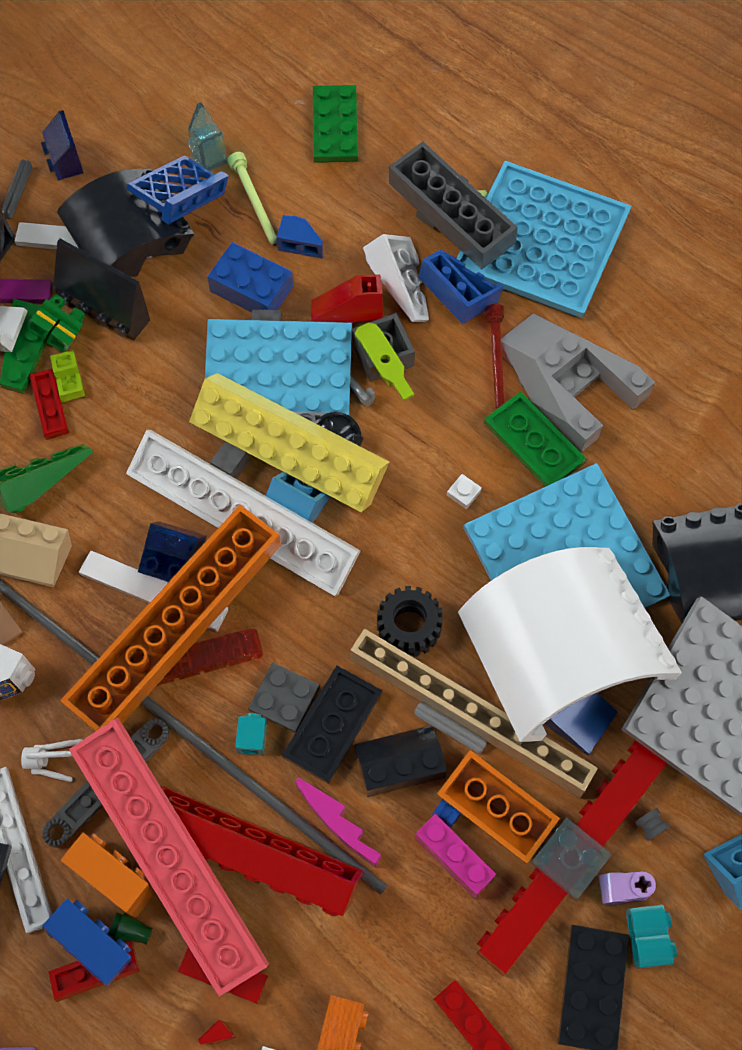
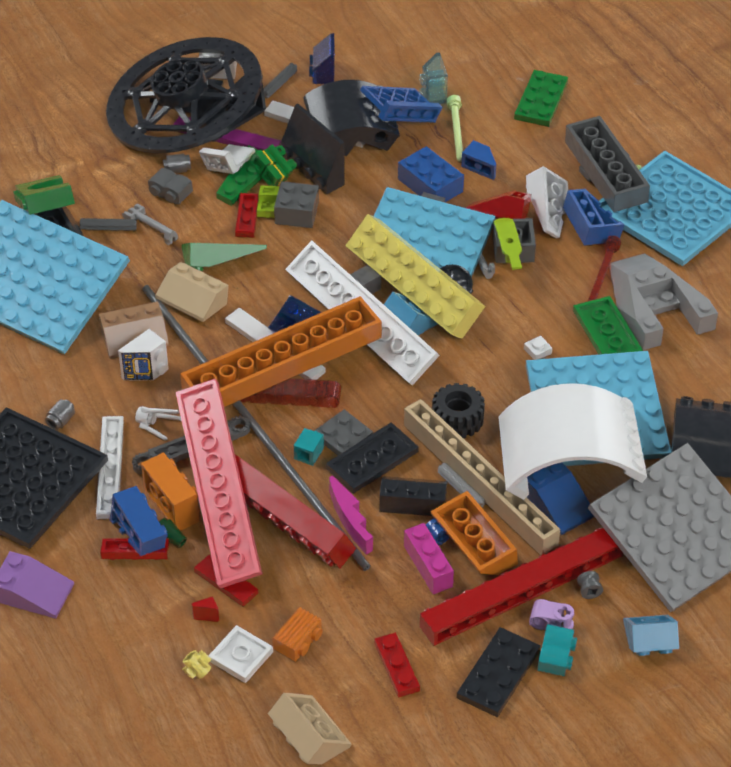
camera: 20 degrees right, 20 degrees down
(105, 373) = (296, 204): none -> dark grey brick
(571, 858) = (514, 576): clear light blue plate -> none

